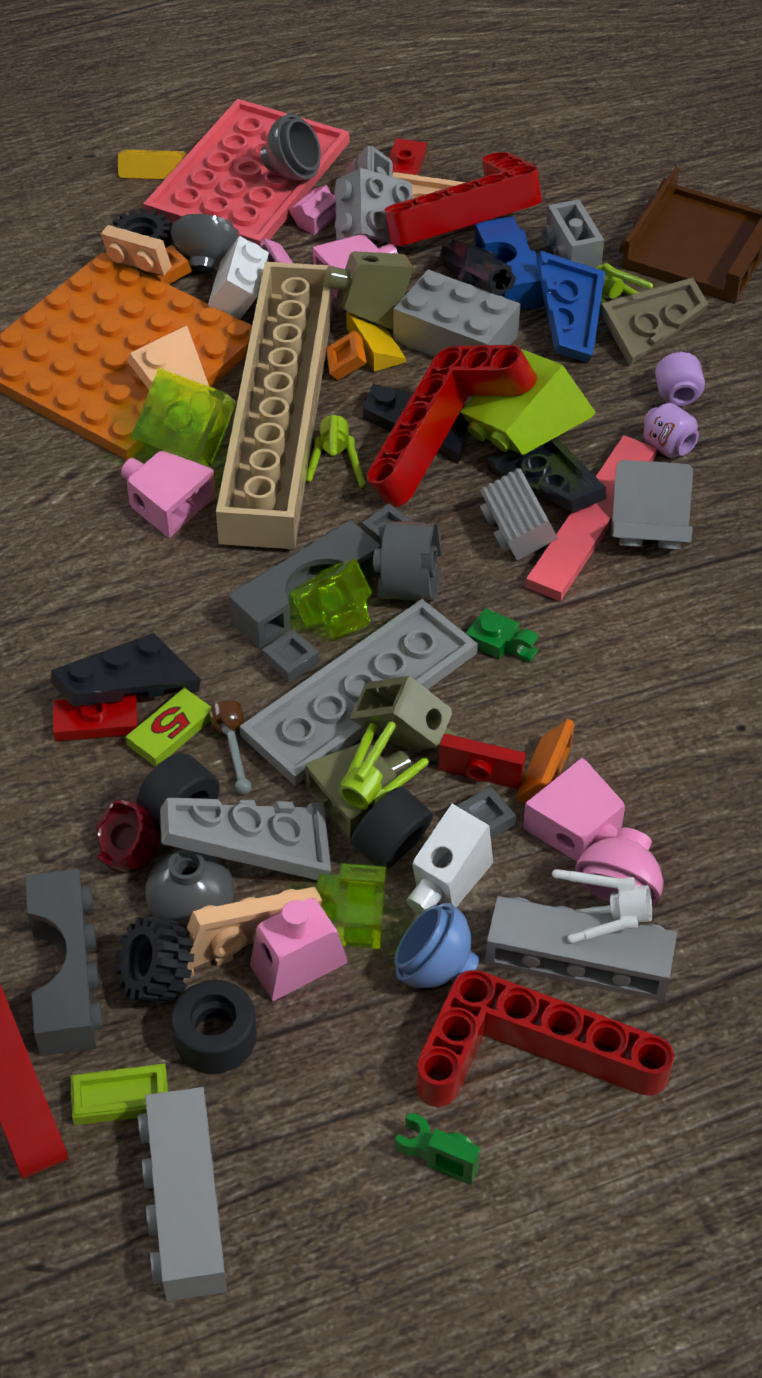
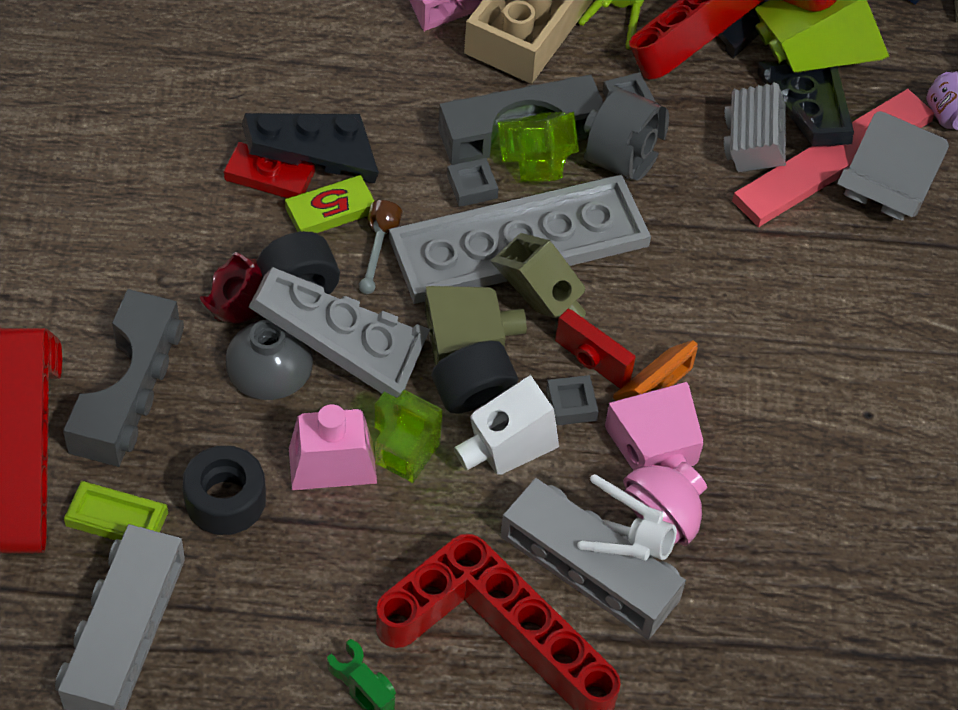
camera: 20 degrees right, 5 degrees up
(154, 960) = (199, 409): black tyre -> none
(228, 928) = (275, 408): light nougat wing -> none
(363, 781) = (465, 323): lime plant -> none
(435, 948) = (455, 503): medium blue piece -> none
(501, 634) = (679, 235): green plate -> none

